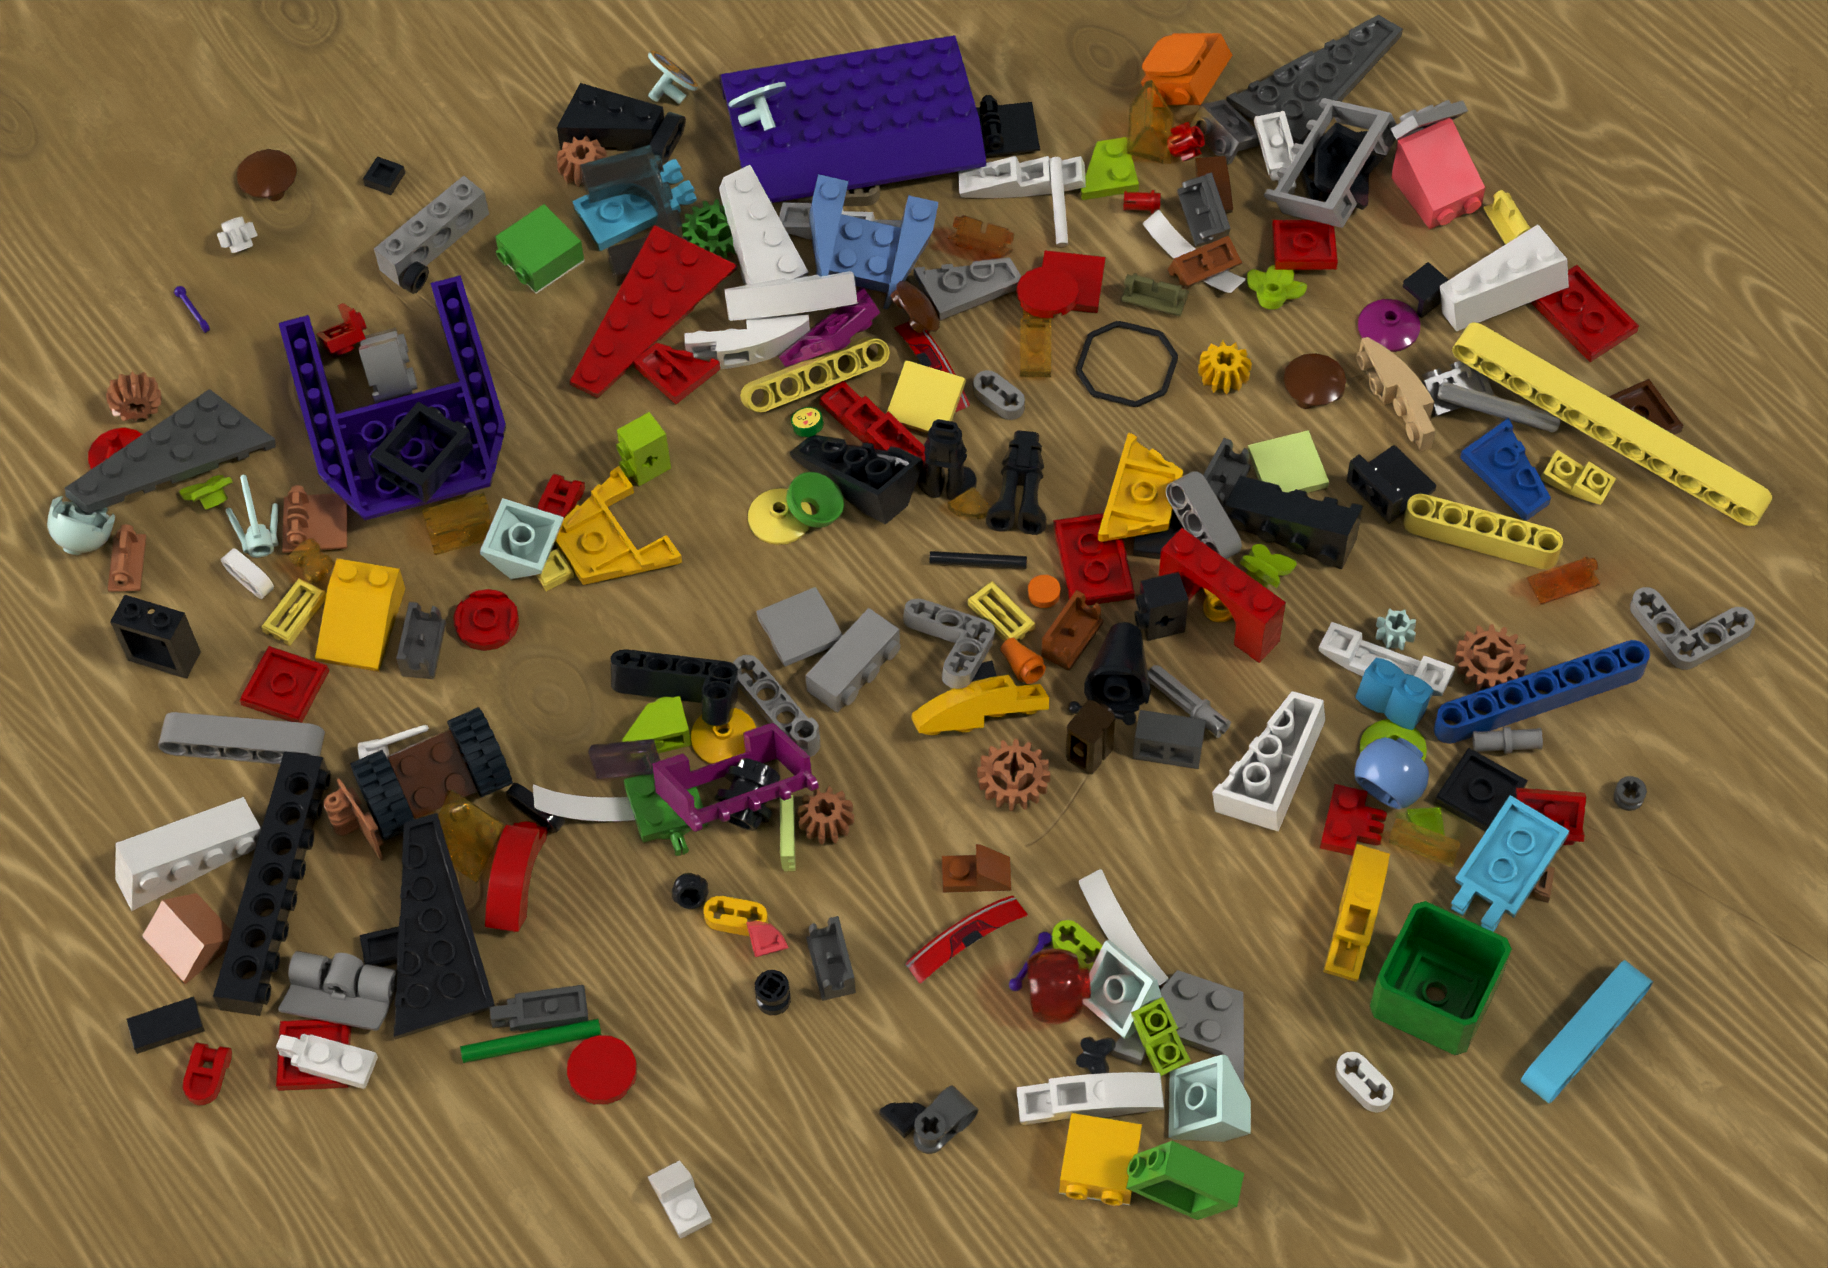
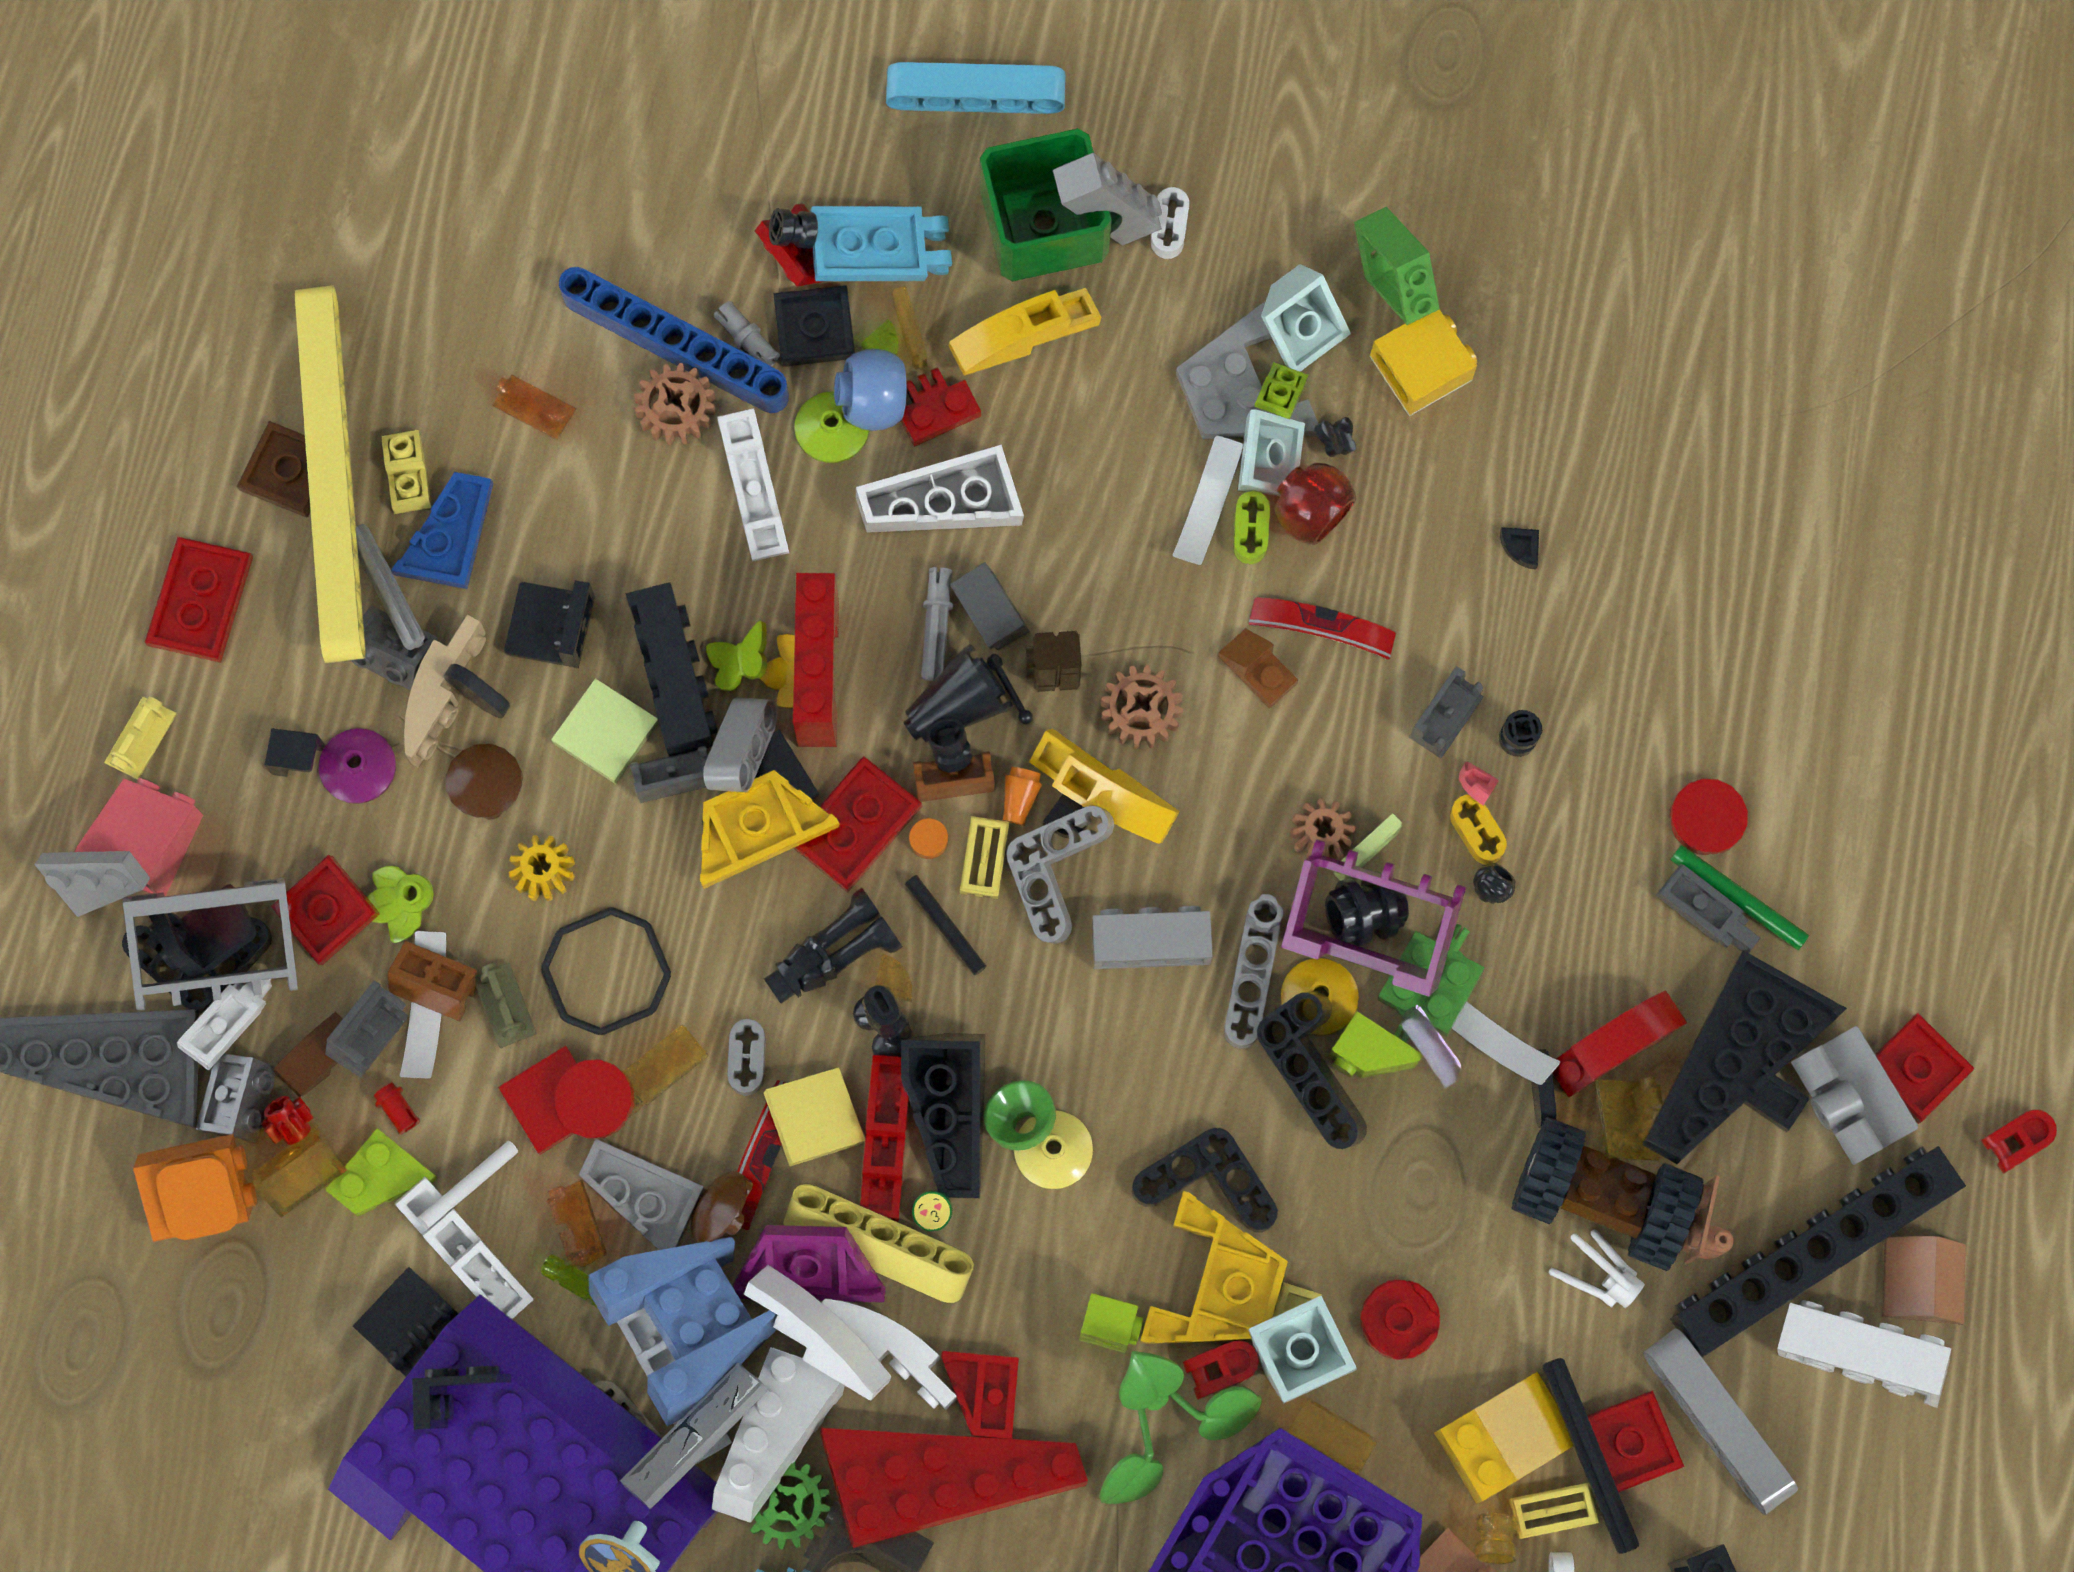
camera: 135 degrees left, 15 degrees up
(165, 1025) = (2014, 1219): black tile -> none
(301, 651) = (1590, 1456): none -> black axle
(329, 1059) = (1916, 1040): white hinge -> none
(407, 477) = (1354, 1509): black window -> none
(420, 642) = (1479, 1351): flat silver hinge -> none
(582, 446) = (1148, 1385): none -> bright green plant
(680, 1199) = (1751, 659): white slope -> none
(685, 588) = (1204, 1164): none -> black beam
(792, 185) = (693, 1435): none -> light grey tile
(799, 626) = (1157, 1020): light grey slope -> none
(935, 78) = (430, 1399): none -> black bracket
(945, 220) = (567, 1276): none -> clear neon green axle
(947, 1116) = (1496, 506): dark grey piece -> none
(1044, 940) = (1267, 565): dark purple hinge -> none
(1090, 631) = (949, 745): none -> black wheel
(1090, 1095) = (1383, 404): white slope -> none
(1162, 606) = (869, 705): black brick -> none
(1377, 404) = (477, 690): none -> black tile
(1394, 693) = (784, 452): dark azure brick -> none
(1395, 629) = (716, 513): light aqua gear -> none
(1402, 1006) = (1097, 186): none -> light grey arch
(1498, 528) = (535, 489): light yellow beam -> none
(1505, 280) = (216, 679): white wedge -> none
(1563, 797) = (793, 228): none -> black wheel
(1631, 783) = (721, 215): dark grey bush -> none
(1683, 638) = (512, 270): light grey beam -> none

